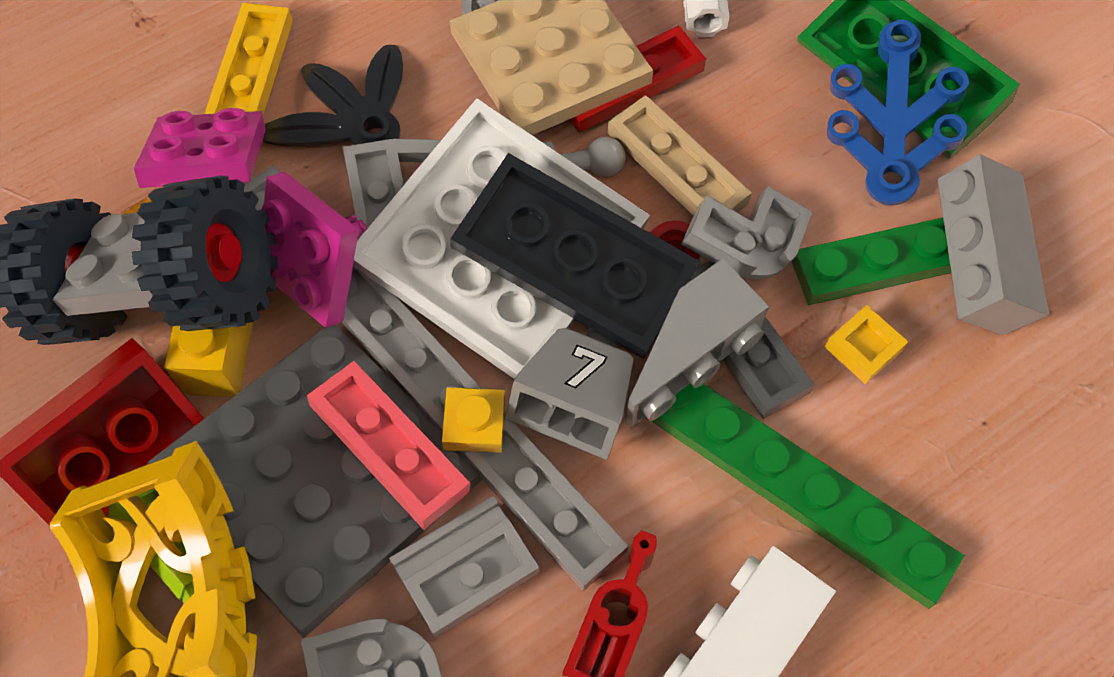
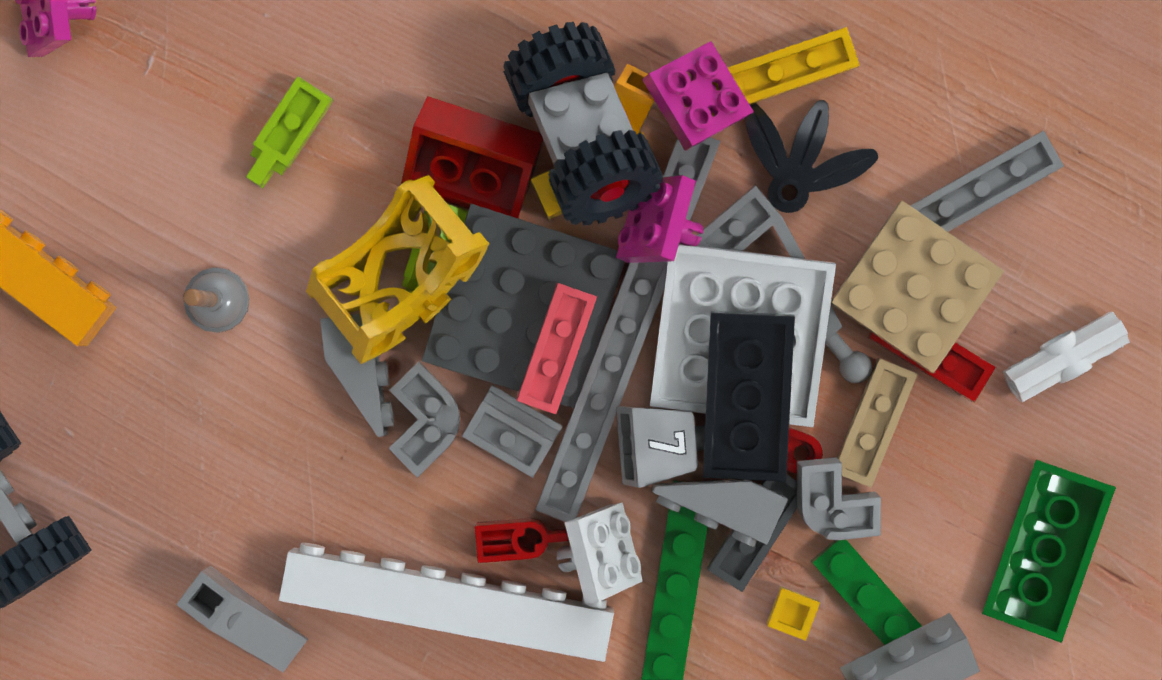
camera: 65 degrees right, 25 degrees up
(473, 420) = (602, 390): yellow plate -> none
(683, 526) = (601, 553): none -> white plate
(894, 119) = (987, 564): blue plant -> none

